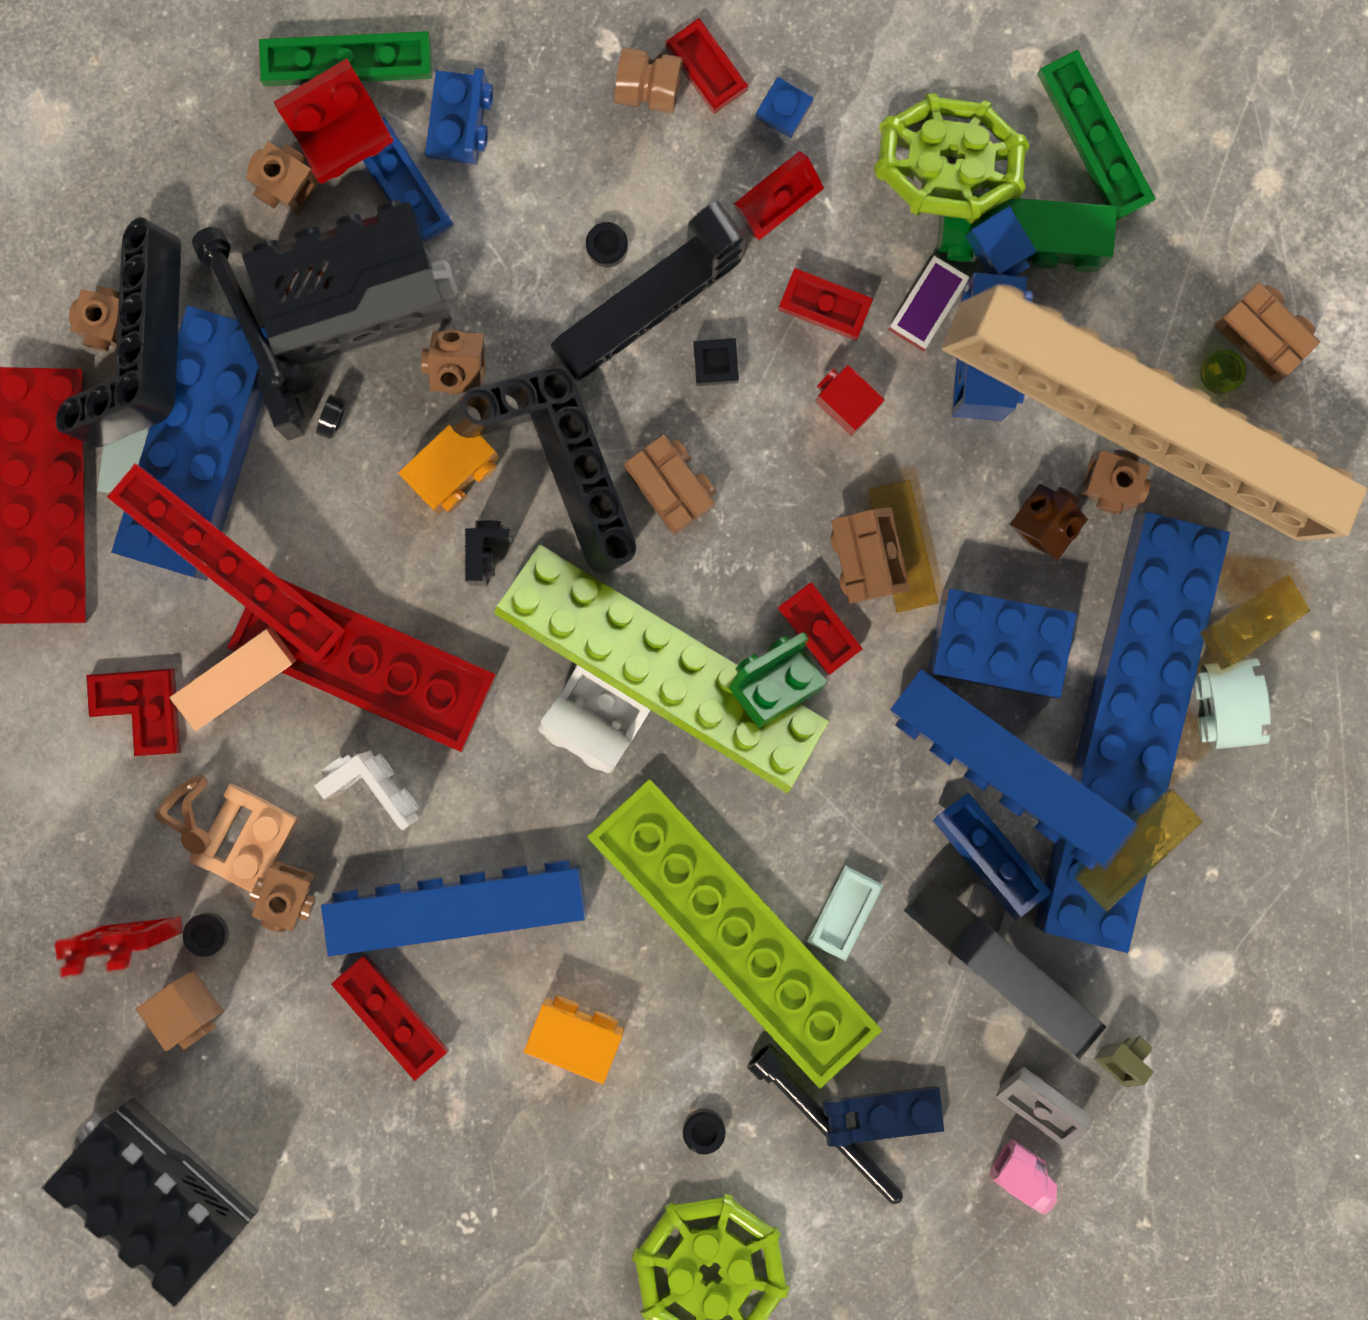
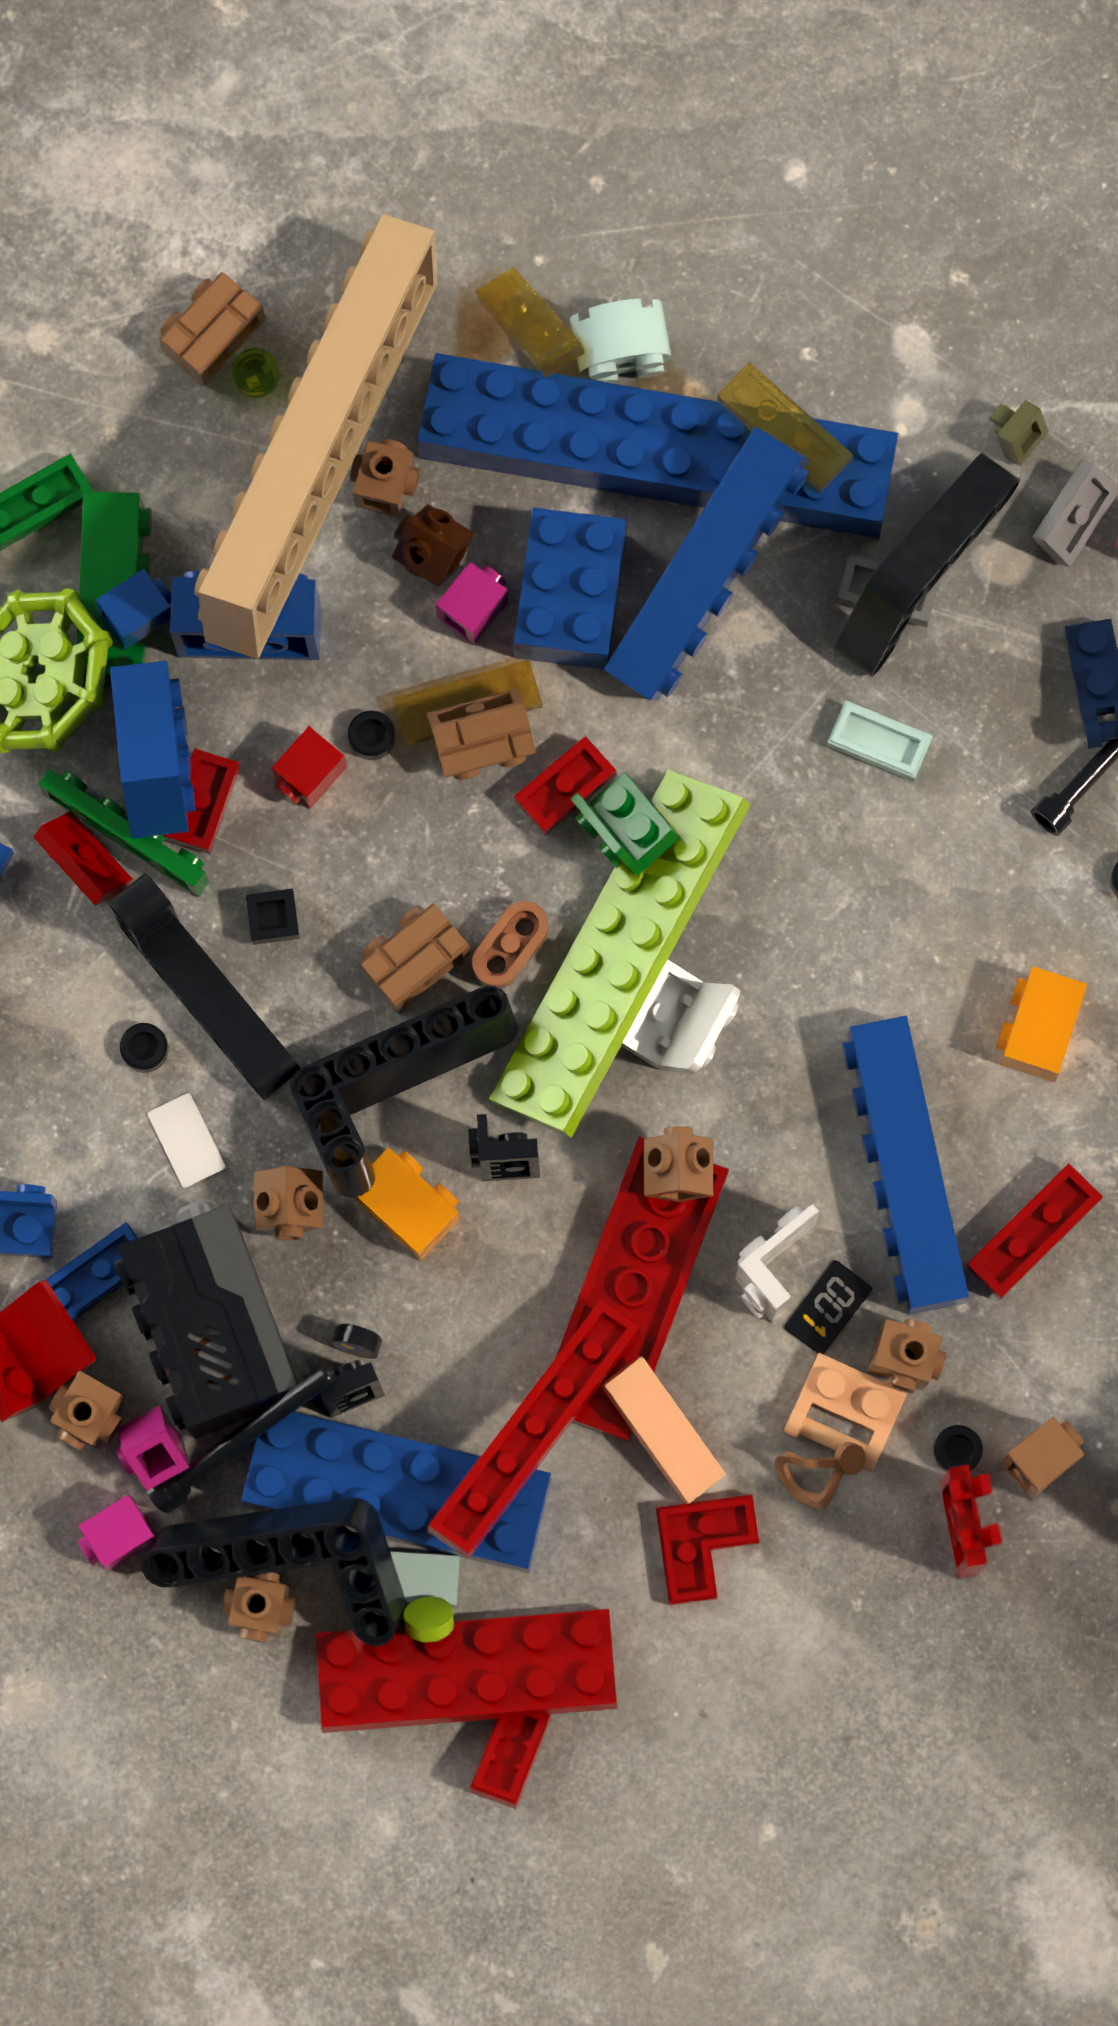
camera: 90 degrees left, 10 degrees down
(80, 465) = (428, 1619): none -> lime tile
(176, 200) = (115, 1534): none -> dark pink brick
(241, 227) = (152, 1448): none -> dark pink brick
(339, 831) = (828, 1307): none -> black sticker
(458, 707) = (678, 1165): none -> medium nougat brick
(523, 278) = (186, 1140): none -> white sticker
(677, 571) = (508, 945): none -> nougat plate
(734, 933) = (909, 858): lime plate -> none
(812, 220) = (109, 820): none -> green plate
(868, 253) = (152, 749): none -> blue brick
(878, 459) = (371, 735): none -> black tile
(928, 303) = (205, 693): dark purple tile -> none
(992, 856) = (804, 584): blue plate -> none
(994, 556) = (473, 602): none -> dark pink brick

